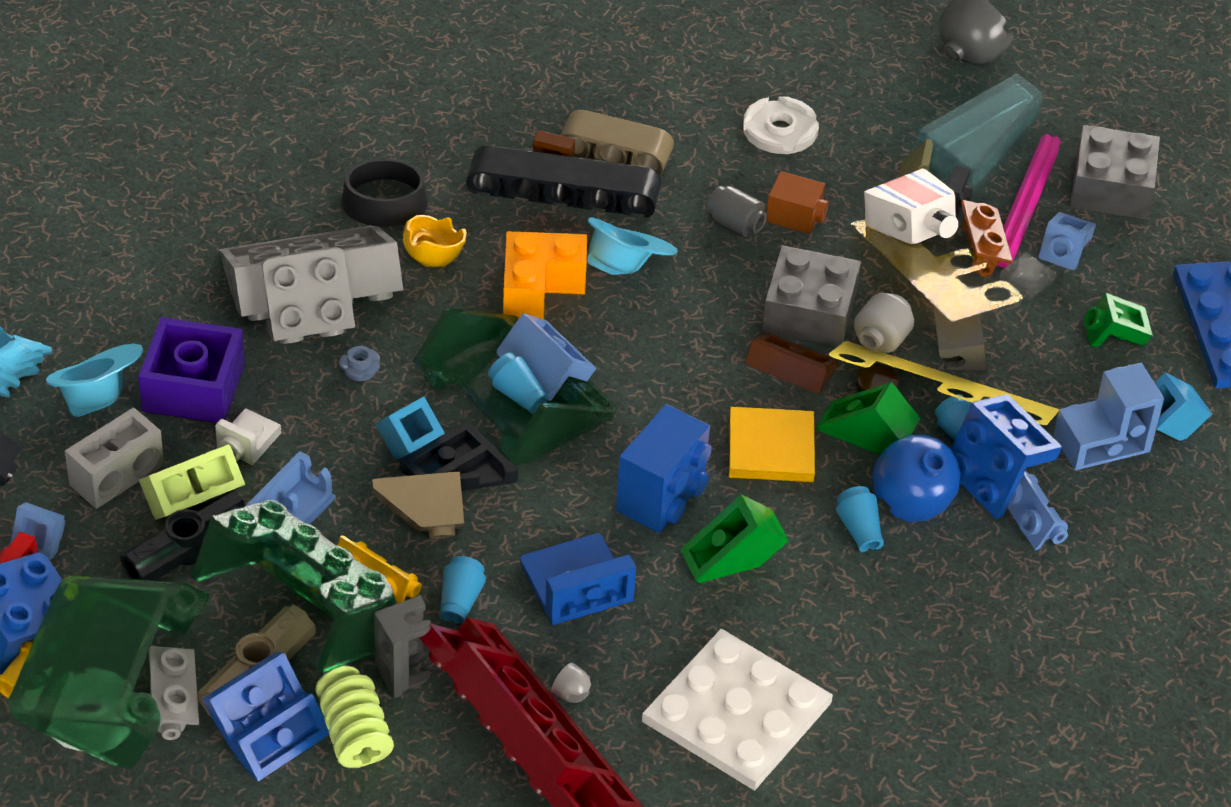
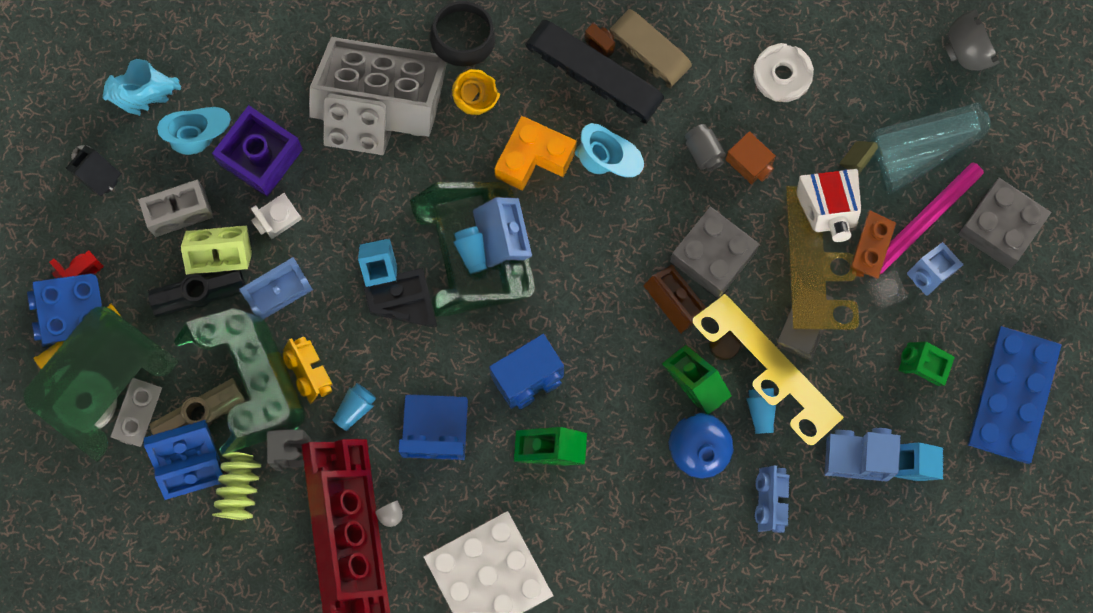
camera: 30 degrees right, 30 degrees up
(42, 524) = (107, 246): medium blue tile -> none
(357, 369) = (378, 189): sand blue plate -> none
(424, 501) = (358, 328): dark tan slope -> none
(771, 444) = (623, 367): yellow tile -> none
(861, 517) = (648, 460): dark azure cone -> none
(884, 320) = (753, 297): light grey head -> none
(959, 184) = (876, 194): black plate -> none
(997, 447) = (768, 453): blue bracket -> none

